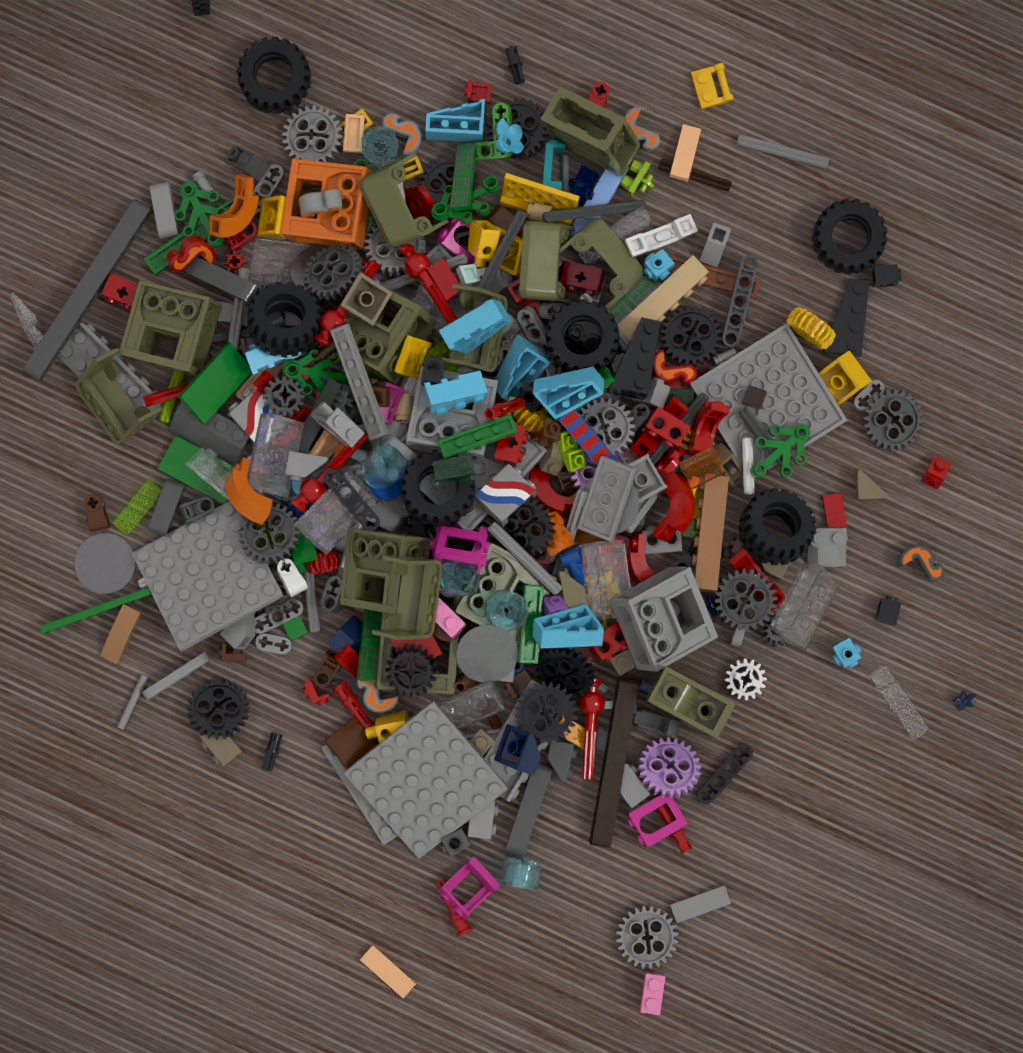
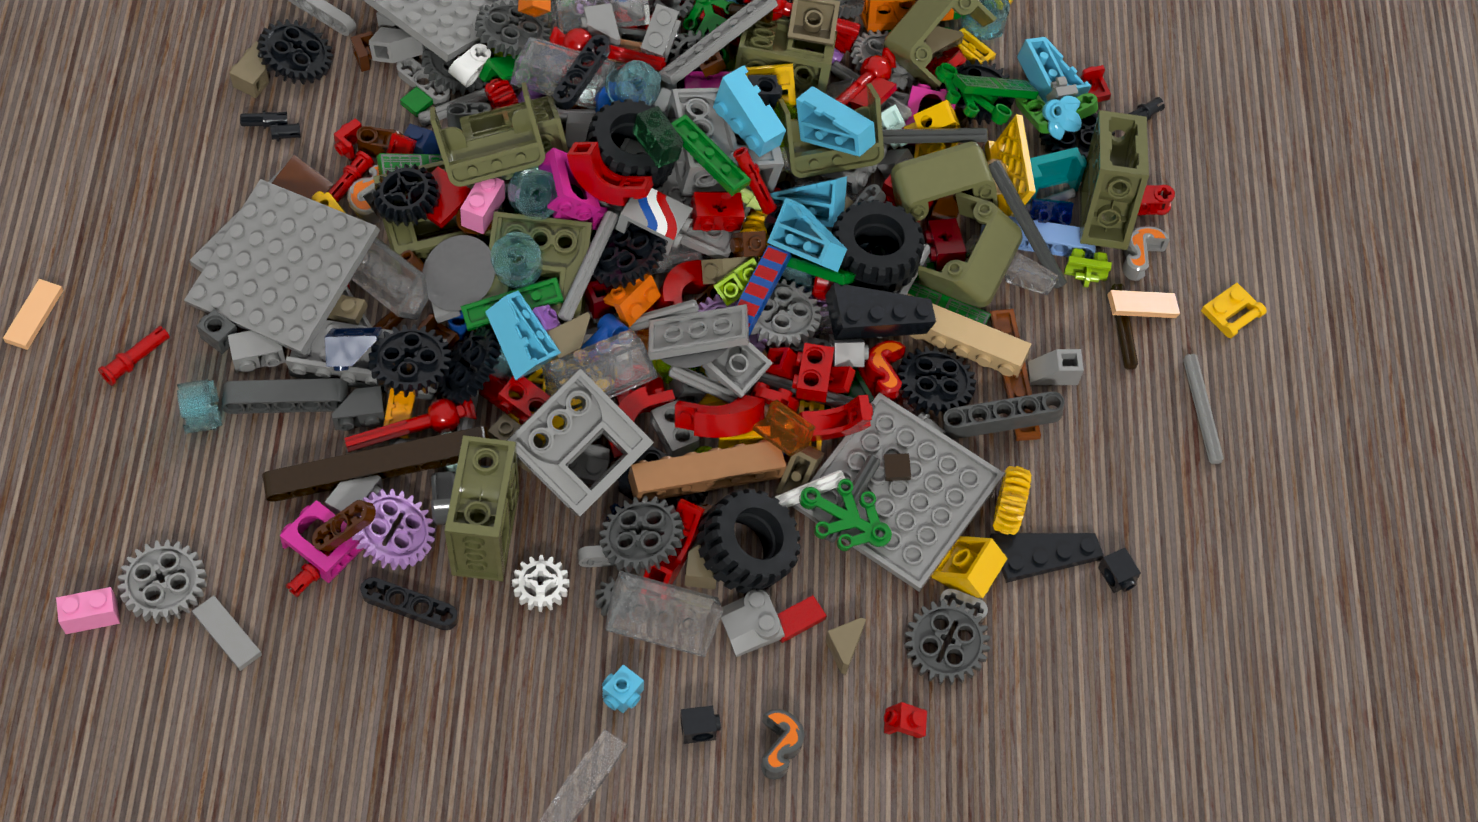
camera: 60 degrees right, 25 degrees down
(275, 639) = (387, 87): light grey beam -> none
(289, 738) = (285, 131): none -> black pin
(404, 129) = (1011, 42): light grey animal -> none
(472, 522) = (600, 181): none -> red arch
(482, 876) = (151, 334): dark pink panel -> none
(487, 127) = (1060, 89): none -> light grey tile
(658, 265) = (999, 312): medium azure brick -> none
(659, 795) = (333, 526): none -> reddish brown beam
(661, 236) = (1032, 311): white slope -> none
(857, 212) = (1154, 482): black tyre -> none

